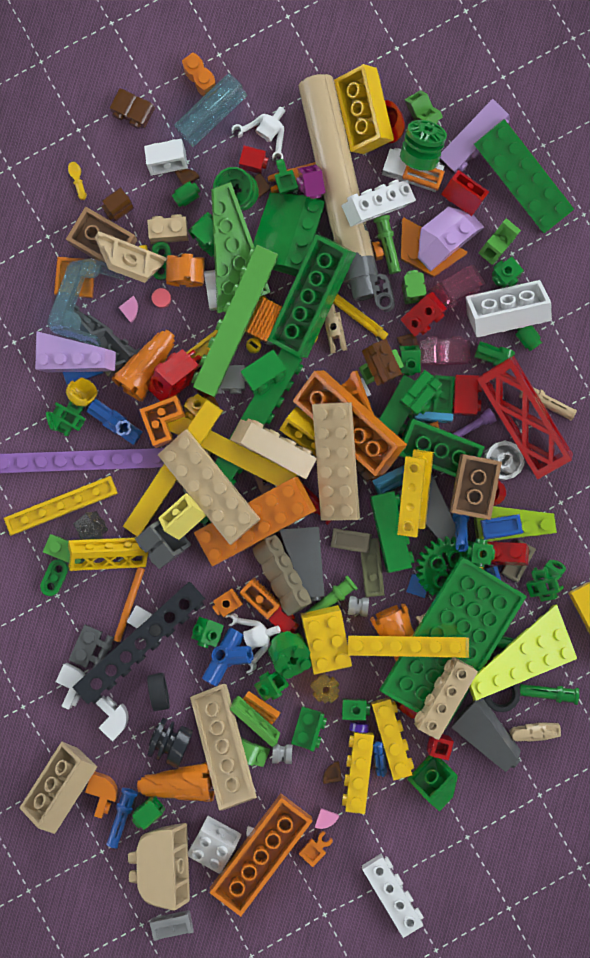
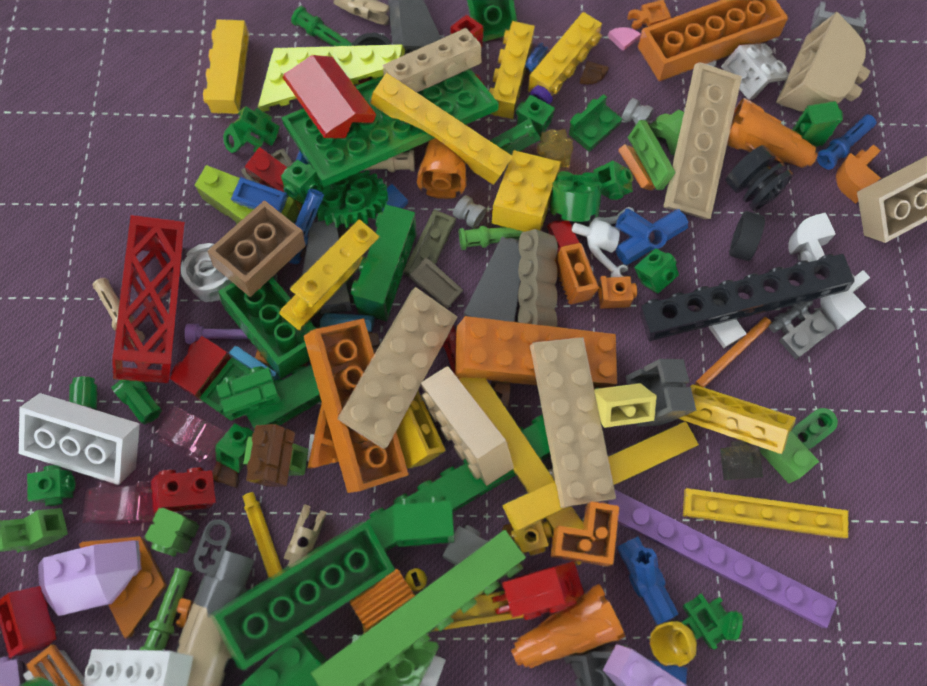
camera: 155 degrees left, 15 degrees down
(358, 679) = (517, 137): none -> green hinge
(502, 628) = (328, 95): none -> slope

